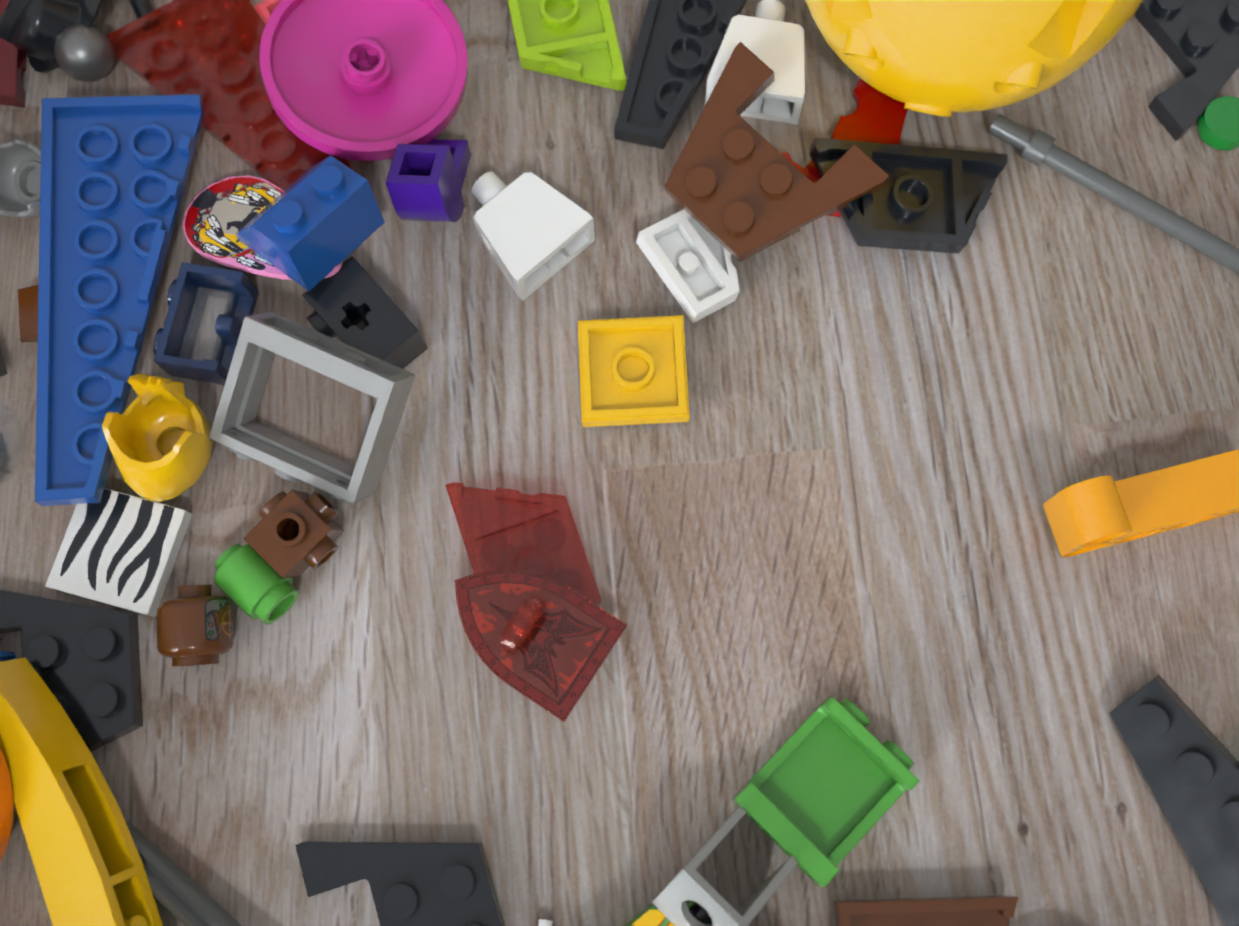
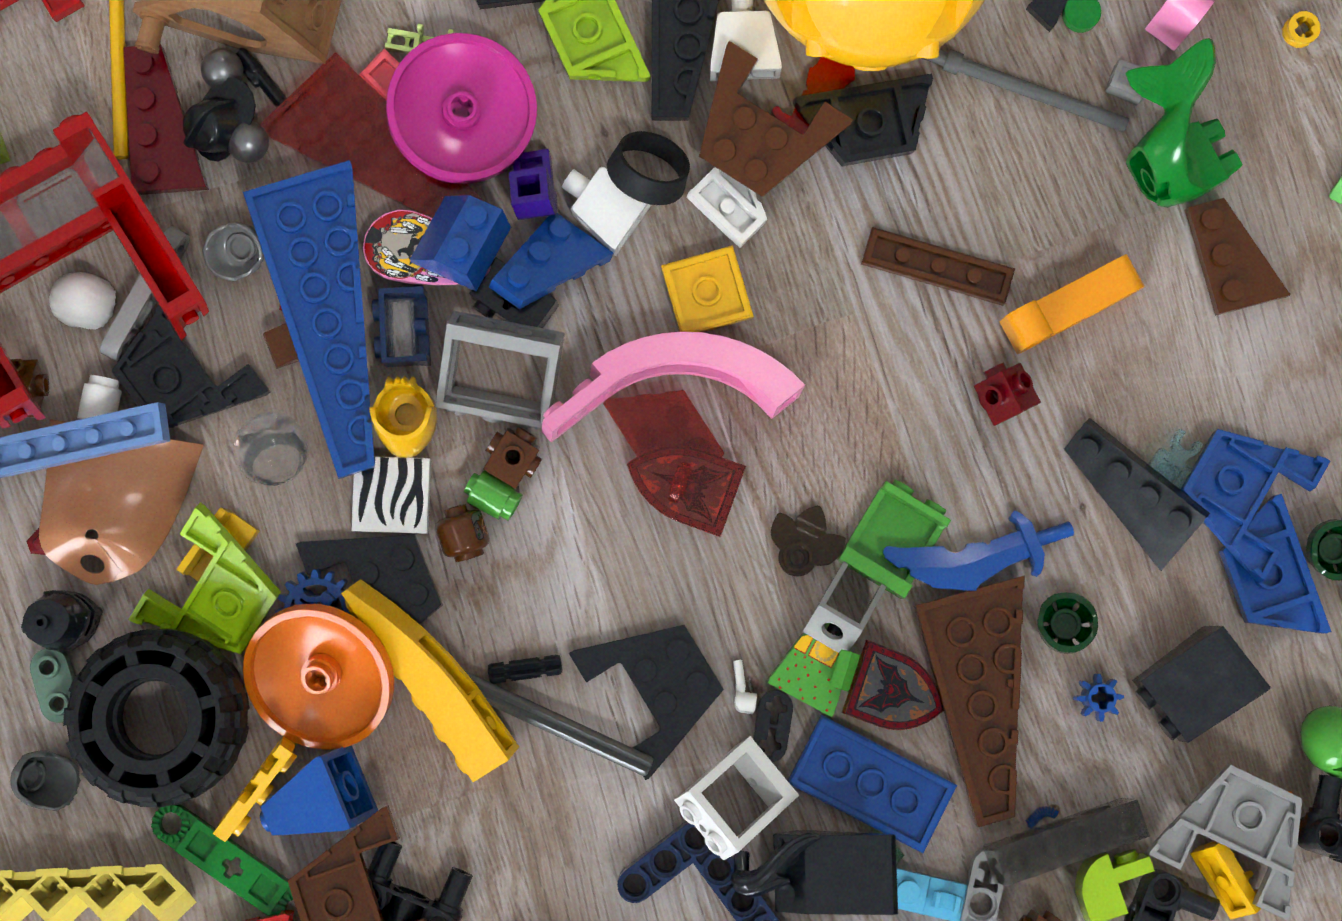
camera: 20 degrees left, 10 degrees up
(226, 852) = (525, 669): none -> black axle
(419, 276) = (548, 259): none -> blue wing
(559, 441) = (684, 353): none -> bright pink arch
(579, 204) = (642, 187): none -> black tyre
(696, 753) = (807, 536): none -> dark brown plate
(948, 855) = (978, 560): none -> blue sword
(968, 410) = (938, 266): none -> reddish brown tile
(1038, 607) = (1006, 392): none -> dark red brick

